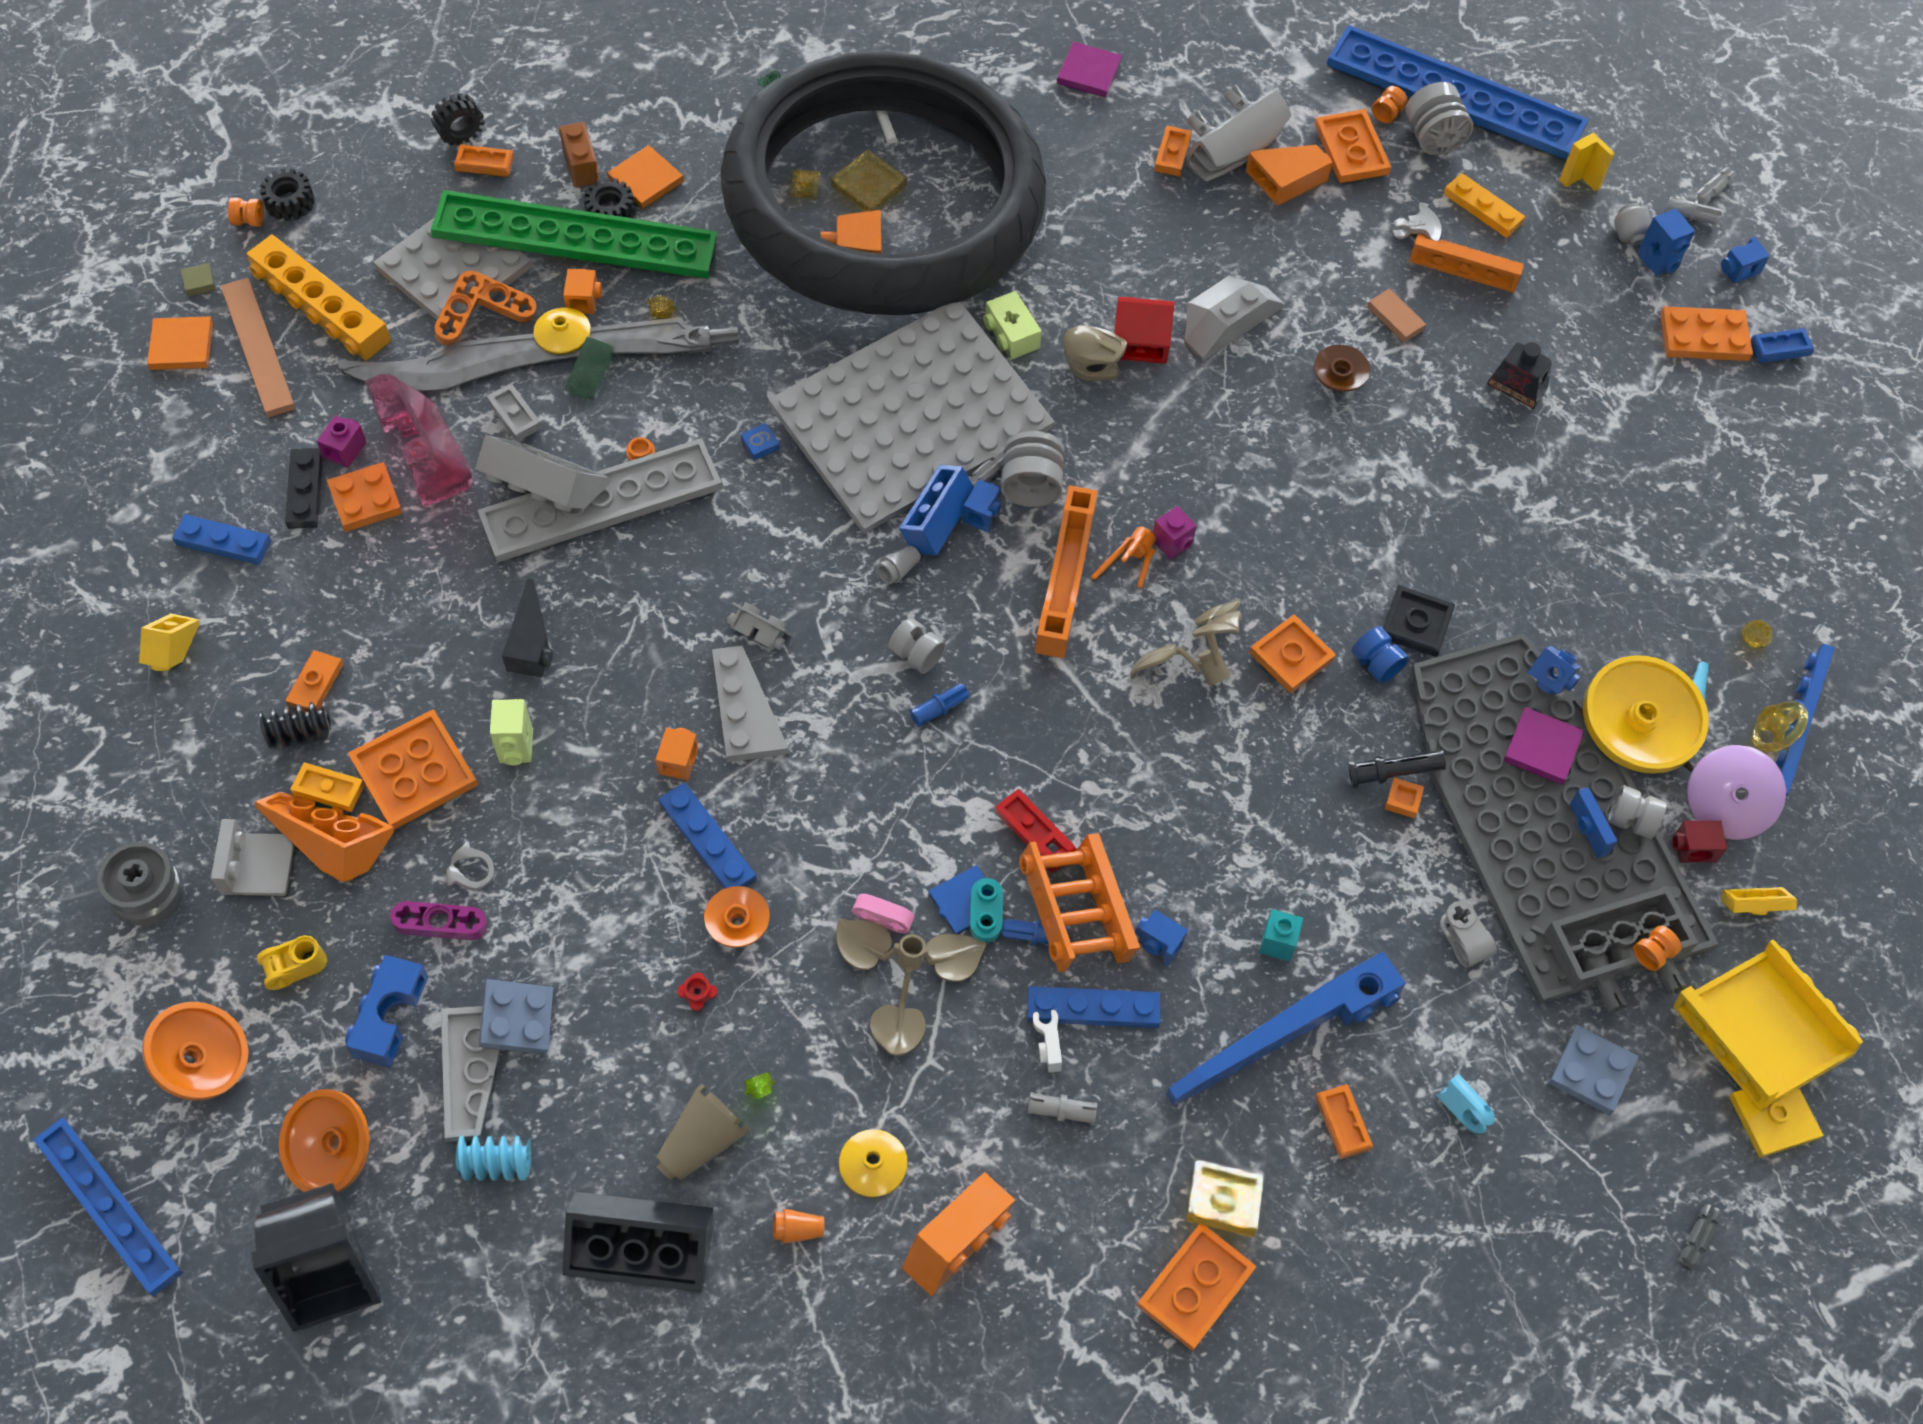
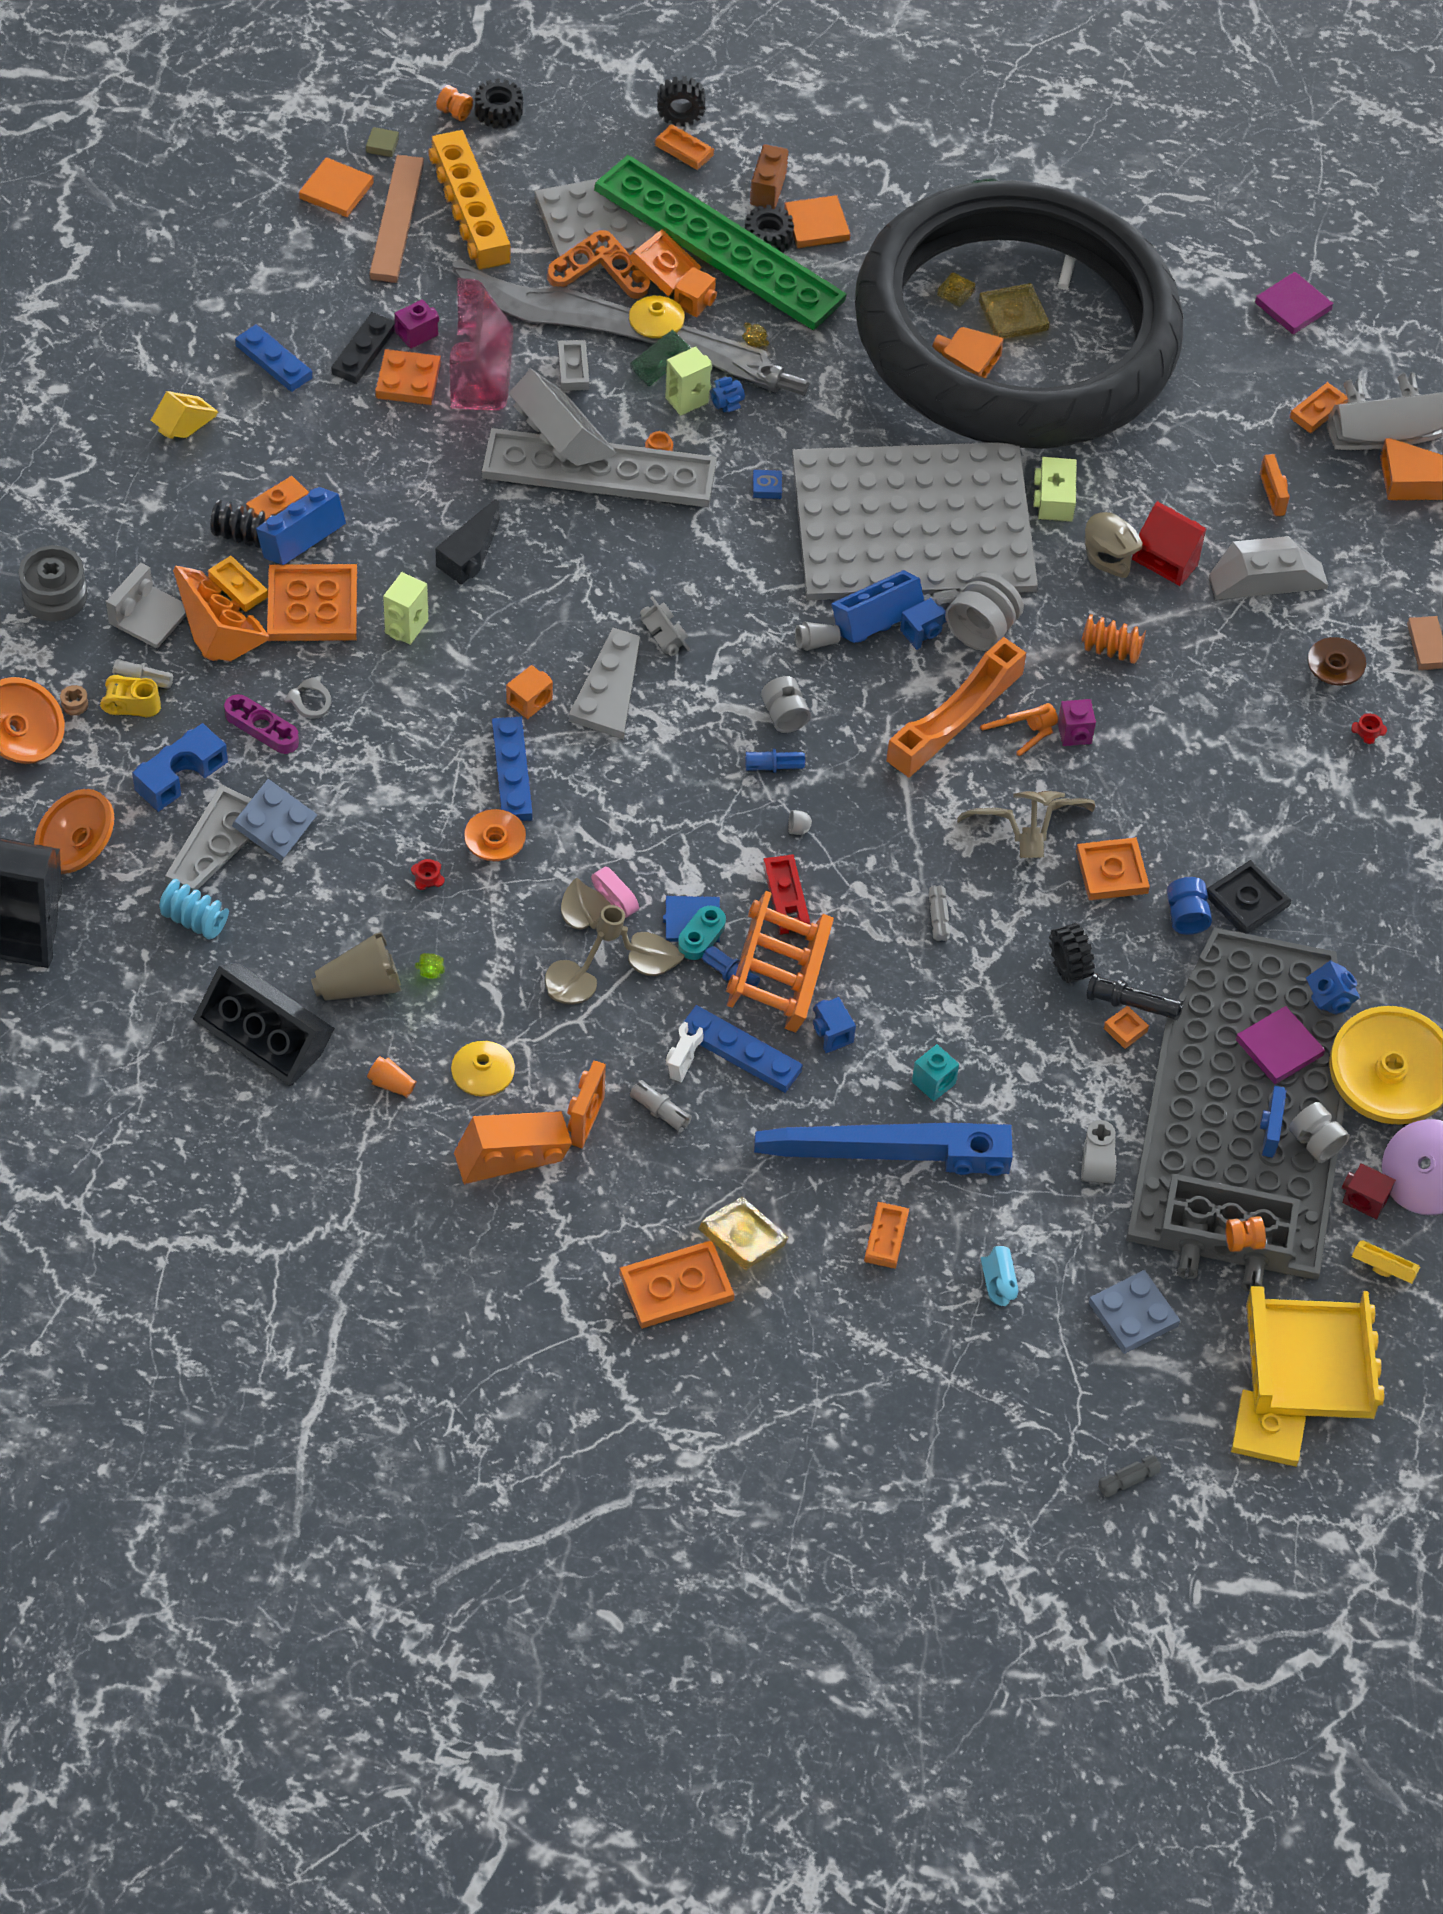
camera: 30 degrees right, 5 degrees down
(228, 988) = (75, 707): none -> medium nougat bush
(288, 931) = (128, 669): none -> light grey axle
(356, 698) = (301, 525): none -> blue brick
(538, 276) = (663, 261): none -> orange plate
(632, 378) = (688, 380): none -> yellowish green brick
(673, 374) = (727, 394): none -> blue gear
(999, 753) = (799, 822): none -> light grey hinge
(1000, 1140) = (587, 1104): none -> orange plate
(1150, 438) = (1113, 639): none -> orange piece
(1176, 775) = (939, 913): none -> light grey axle
(1185, 235) = (1274, 484): none -> orange plate
(1319, 754) = (1071, 953): none -> black tyre
(1405, 408) = (1371, 722): none -> red plate

